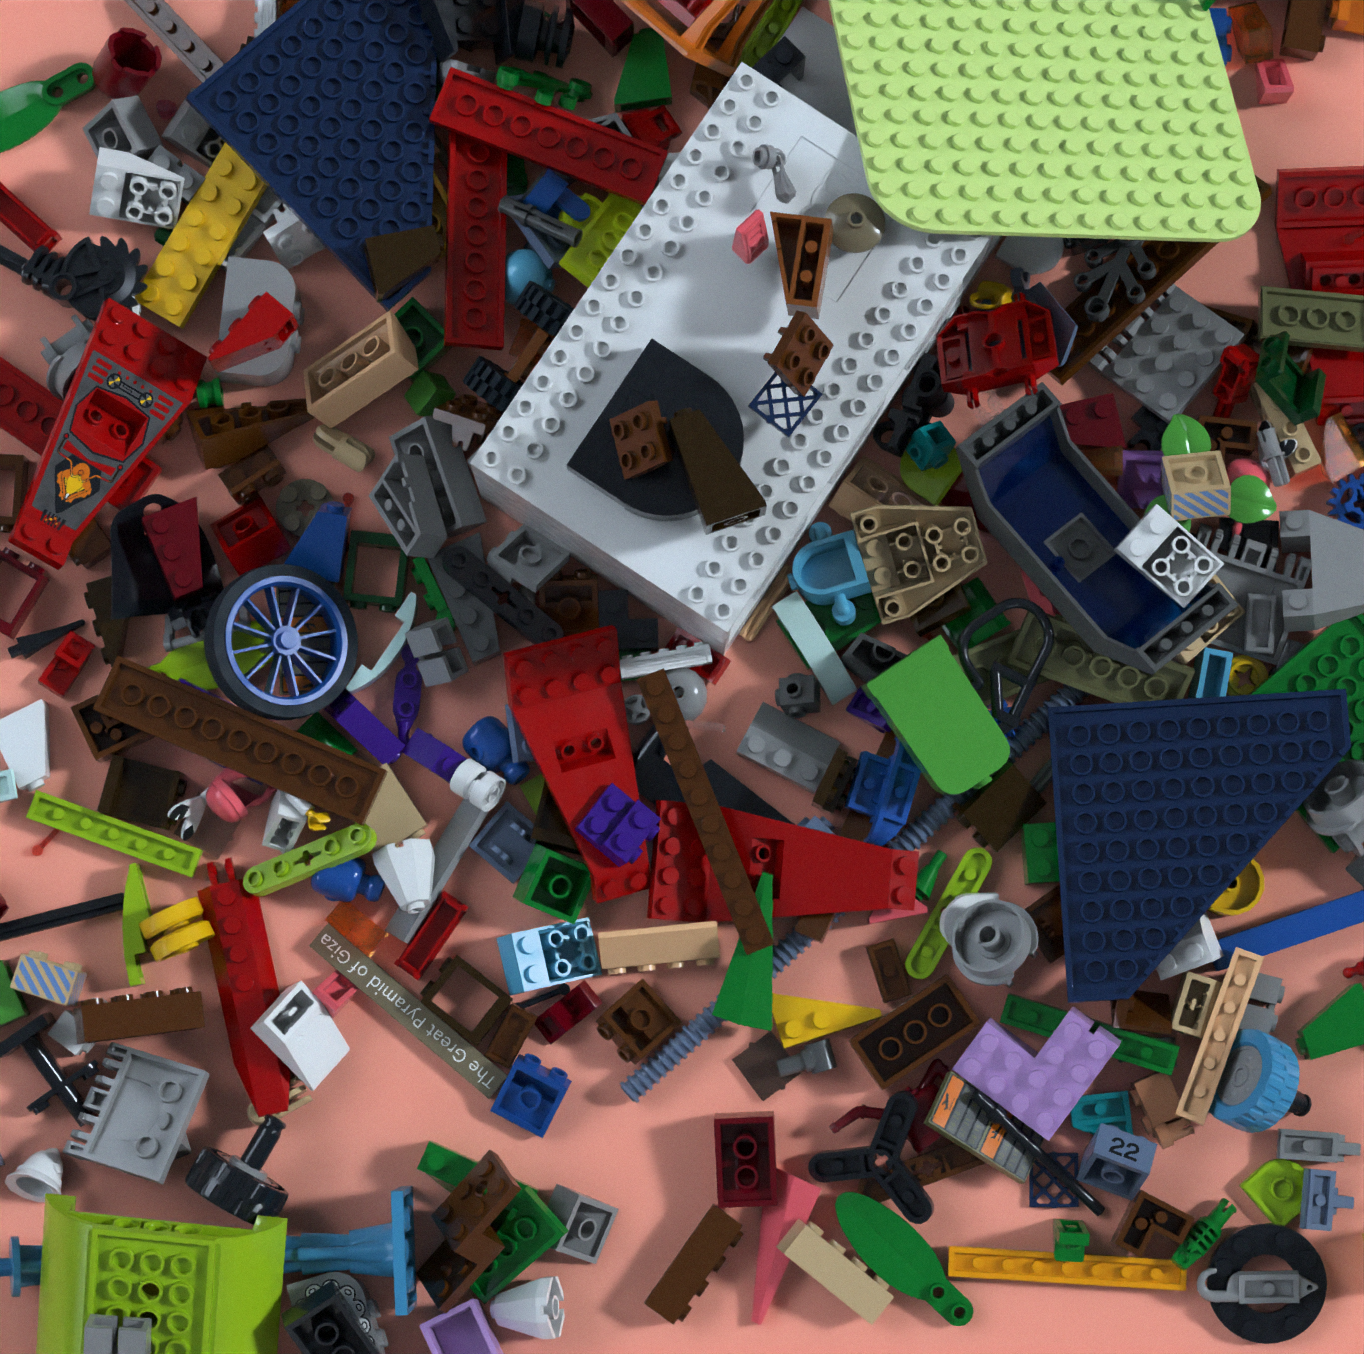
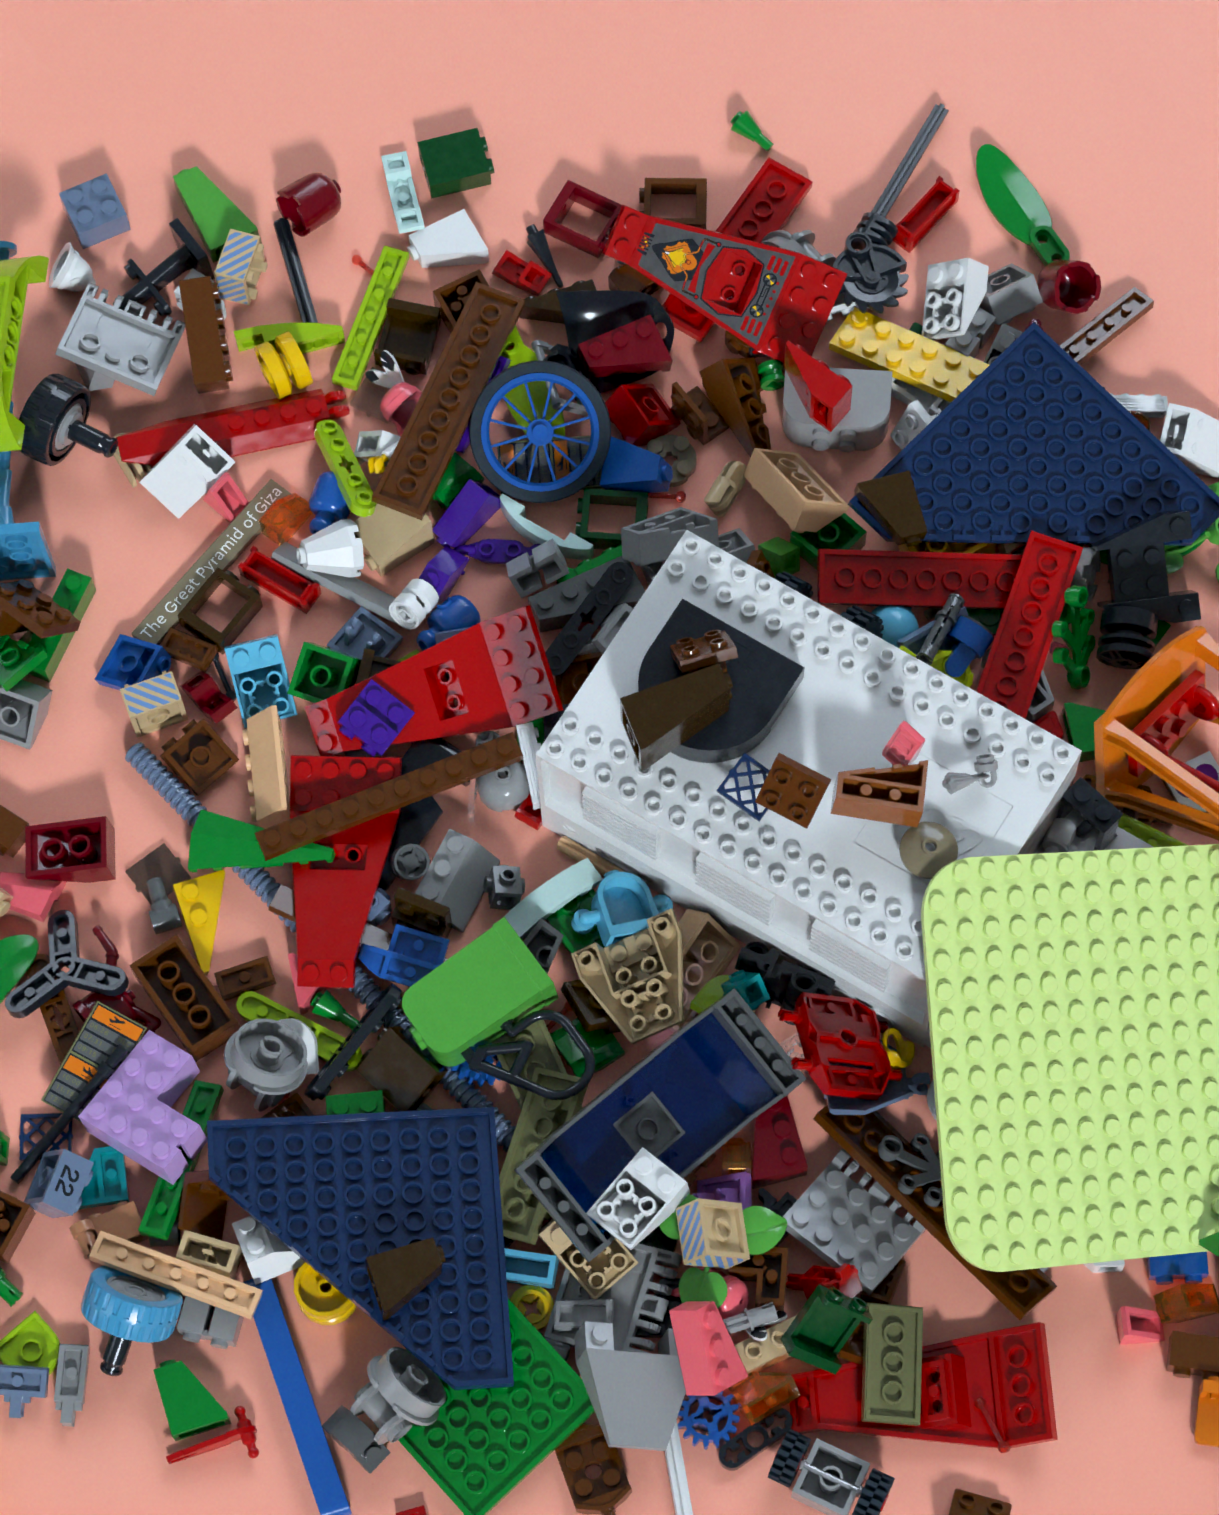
camera: 95 degrees right, 15 degrees down
(580, 1070) = (154, 704): none -> tan container
(771, 793) = (409, 862): none -> dark grey wheel
(970, 853) = (337, 1064): none -> black piece
(1239, 796) = (403, 1273): none -> dark brown slope
(1310, 499) = (705, 1349): none -> coral wedge

